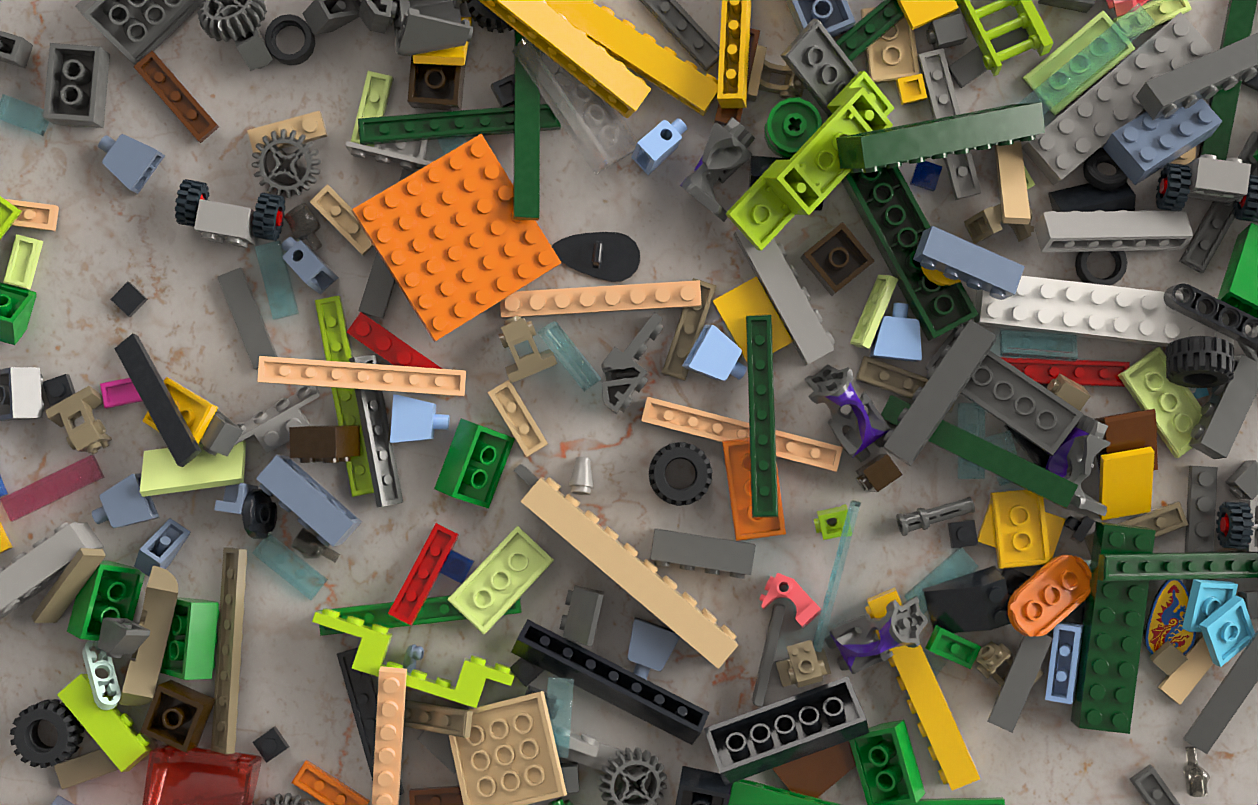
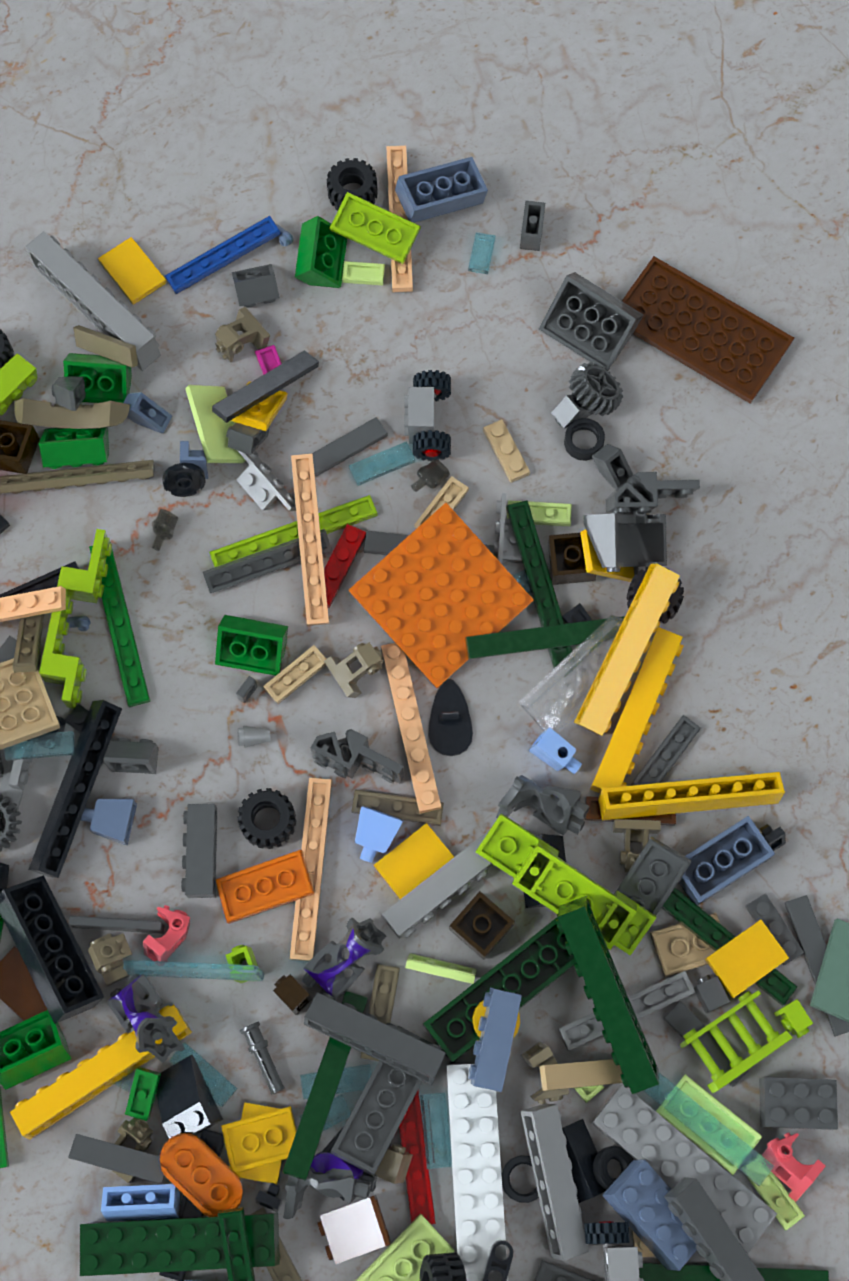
camera: 80 degrees right, 15 degrees down
(52, 488) = (184, 325): clear pink tile -> none
(58, 389) = (265, 315): black plate -> none
(76, 85) = (512, 285): dark grey brick -> none
(97, 684) = (29, 381): light aqua beam -> none
(124, 504) = (176, 377): sand blue torso -> none
(129, 299) = (346, 355): black tile -> none
(130, 160) = (458, 336): sand blue torso -> none
(176, 96) = (518, 361): reddish brown plate -> none
(290, 566) = (144, 513): clear light blue tile -> none
(294, 171) = (488, 437): dark grey gear -> none
(308, 265) = (396, 483): sand blue torso -> none
(308, 500) = (199, 516): sand blue brick -> none
(324, 443) = (249, 519): dark brown brick -> none
(415, 420) = (281, 590): light blue torso -> none
(423, 574) = (150, 618): red plate -> none
(457, 566) = (161, 646): clear blue plate -> none
(500, 580) = (154, 683): yellowish green tile -> none
(569, 355) = (356, 707): clear light blue tile -> none
(631, 573) = (173, 789): tan brick -> none
(762, 416) = (327, 879): dark green tile -> none
(786, 114) = (599, 854): green wheel -> none
(898, 336) = (421, 994): light blue torso -> none
(911, 89) = (651, 970): yellow plate -> none
(926, 175) = (575, 998): clear blue plate -> none
(962, 533) = (249, 1087): black plate -> none
(1126, 482) = (317, 1234): yellow tile -> none

